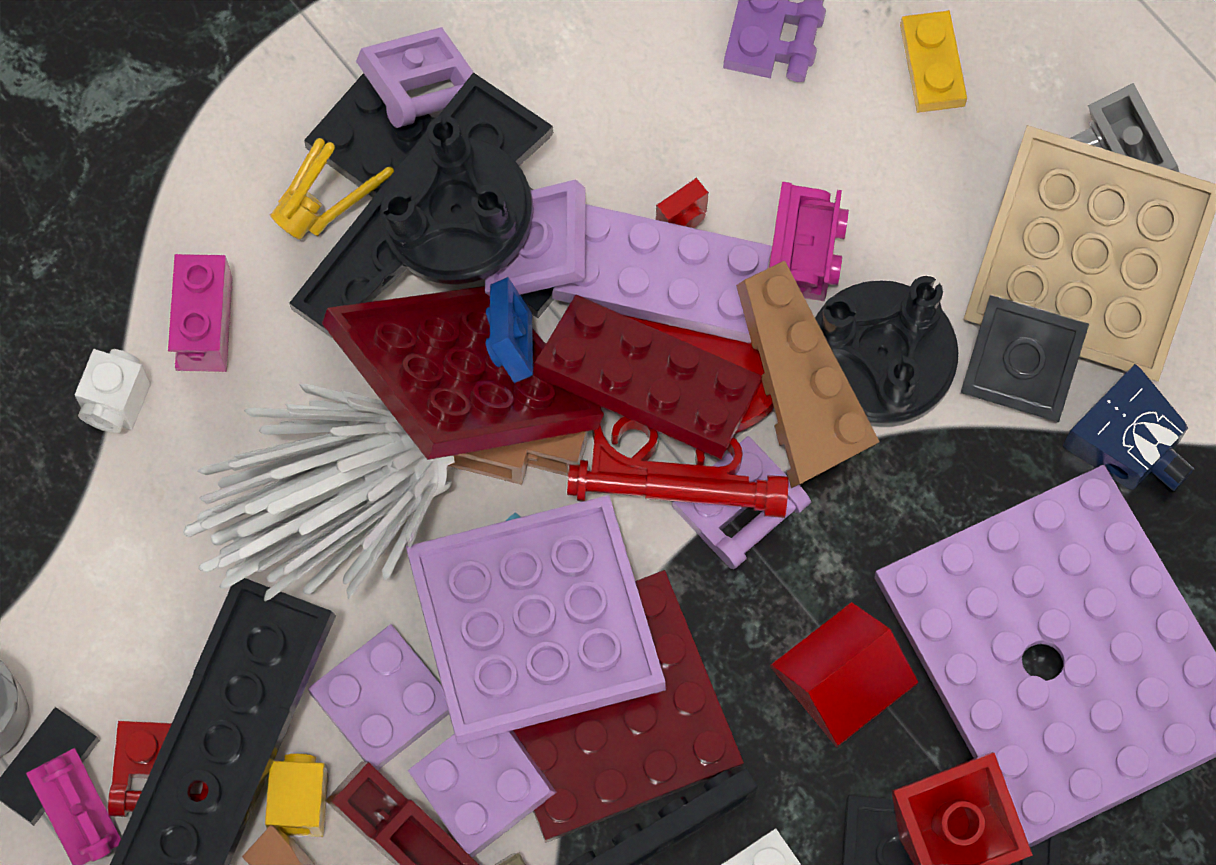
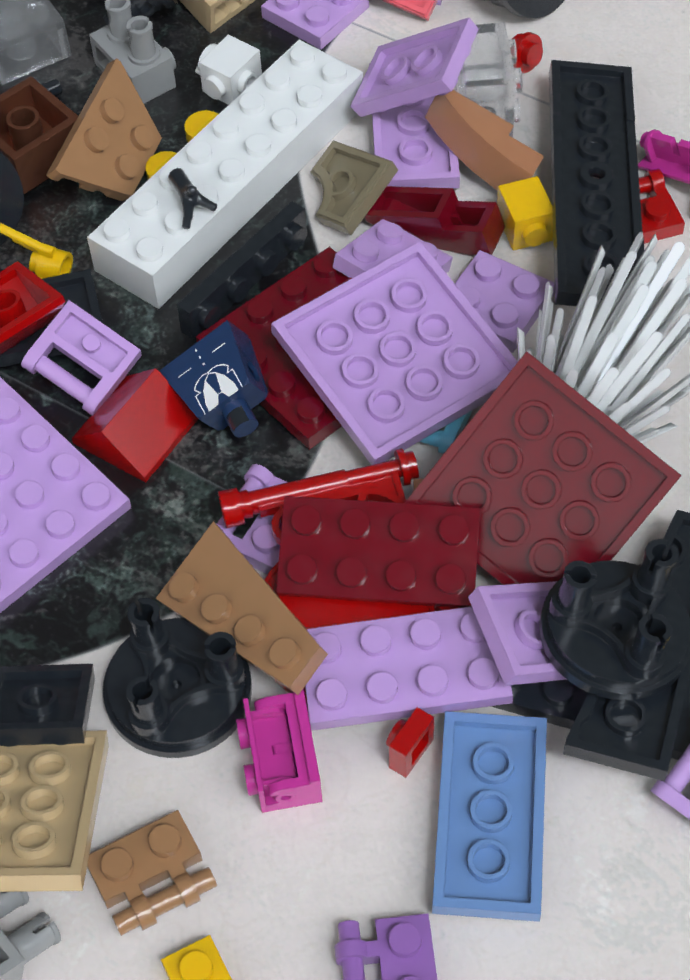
camera: 165 degrees right, 15 degrees down
(510, 330) = (515, 534): blue plate -> none
(637, 120) = (491, 817): none -> medium blue plate
(739, 668) = (220, 380): none -> dark blue torso
(868, 764) = (90, 346): none -> lavender plate
(959, 194) = (144, 860): none -> medium nougat plate

